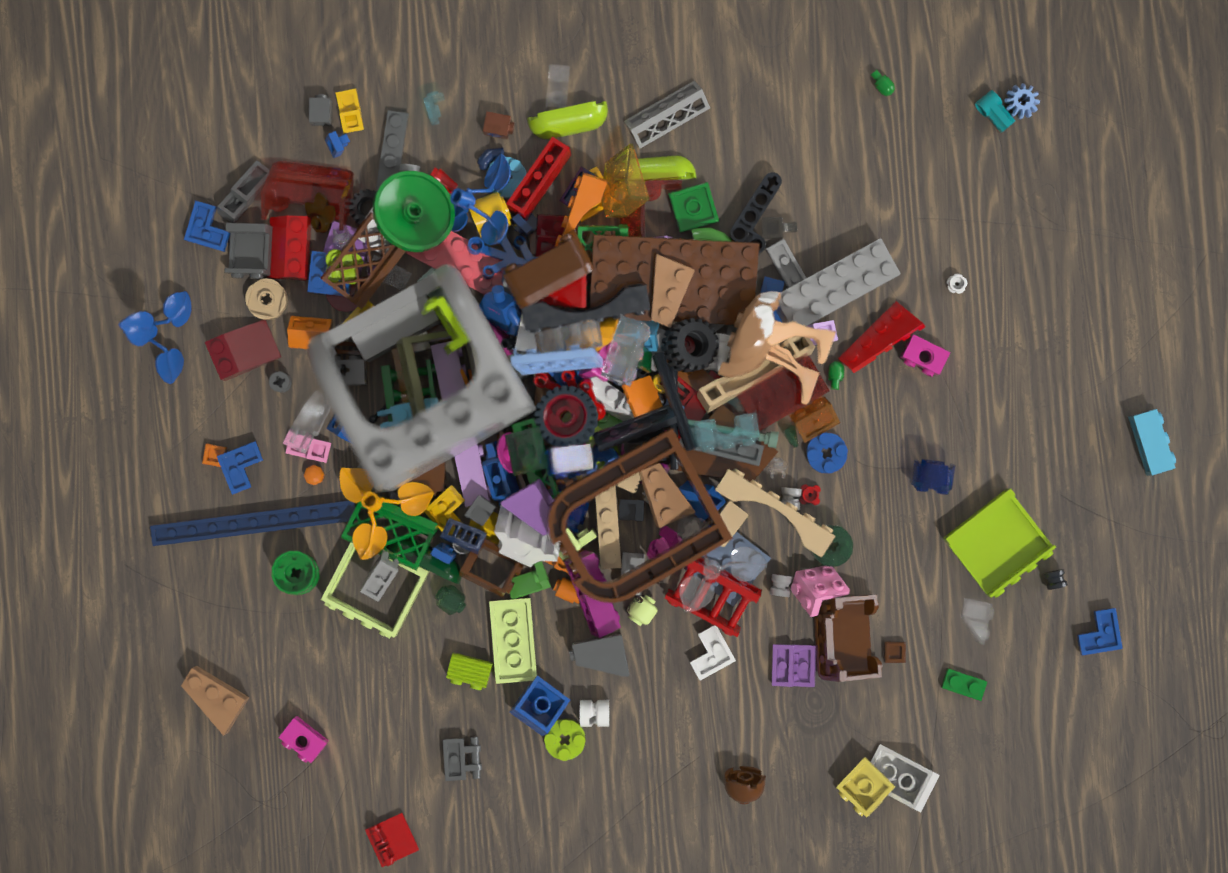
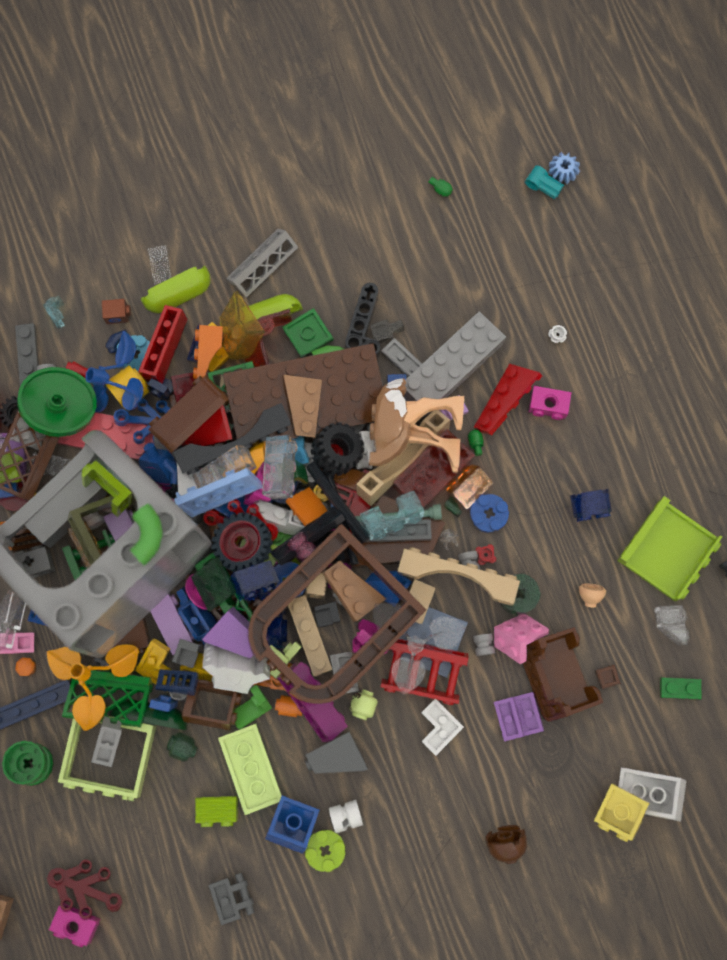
camera: 15 degrees left, 10 degrees down
(318, 707) = (82, 888): none -> dark red plant
(484, 405) = (150, 534): none -> bright green cylinder
(625, 439) = (301, 546): none -> clear pink wheel
(905, 565) = (591, 594): none -> light nougat brick

